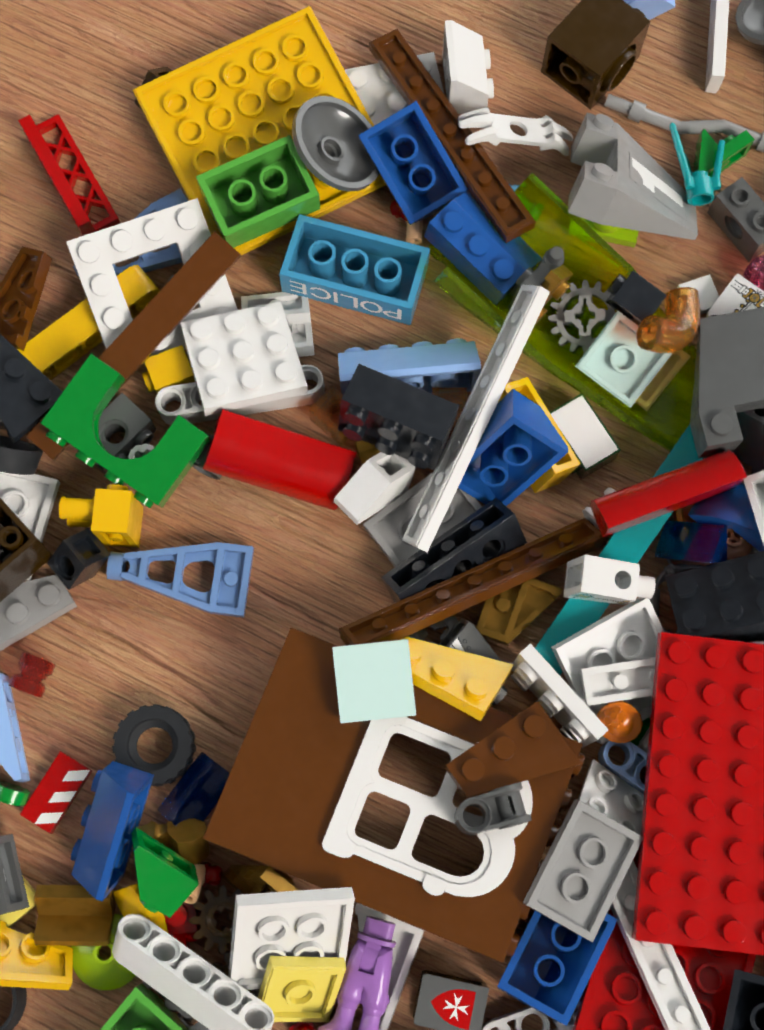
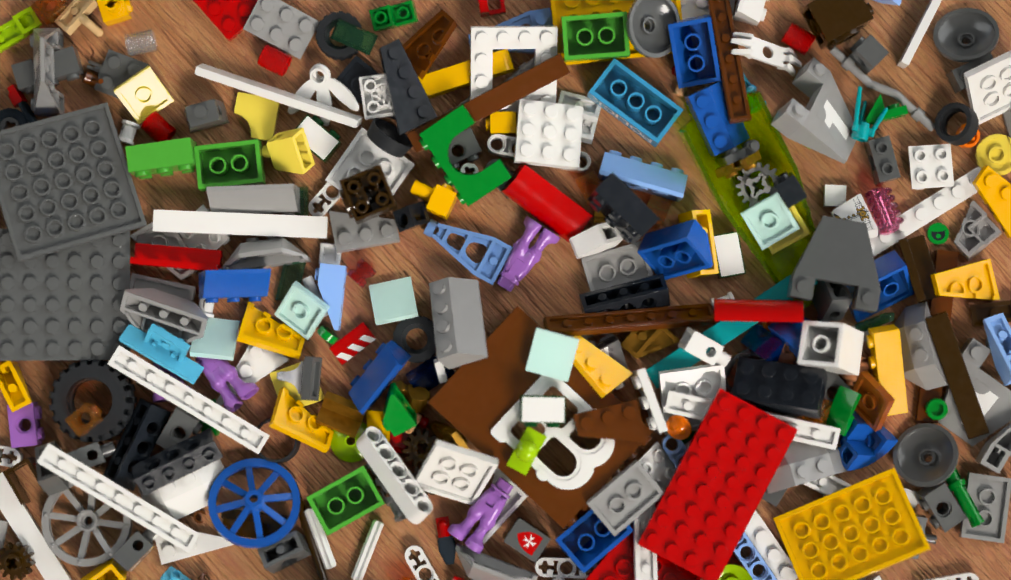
camera: 20 degrees right, 10 degrees up
(96, 699) = (393, 301): none -> light aqua tile
(206, 691) = (458, 321): none -> light grey slope
(207, 780) = (440, 371): none -> white tile
(274, 556) = (522, 257): none -> medium lavender piece
(302, 987) = (451, 500): light yellow tile -> none
(392, 855) = (526, 450): none -> lime tile
(393, 776) = (542, 409): none -> white brick
(475, 416) = (668, 224): white tile -> none
(495, 810) = (590, 448): dark grey piece -> none
(553, 101) = (798, 38): none -> red piece
(661, 79) = (867, 53): none -> dark grey brick
(677, 327) = (806, 217): clear orange cylinder -> none

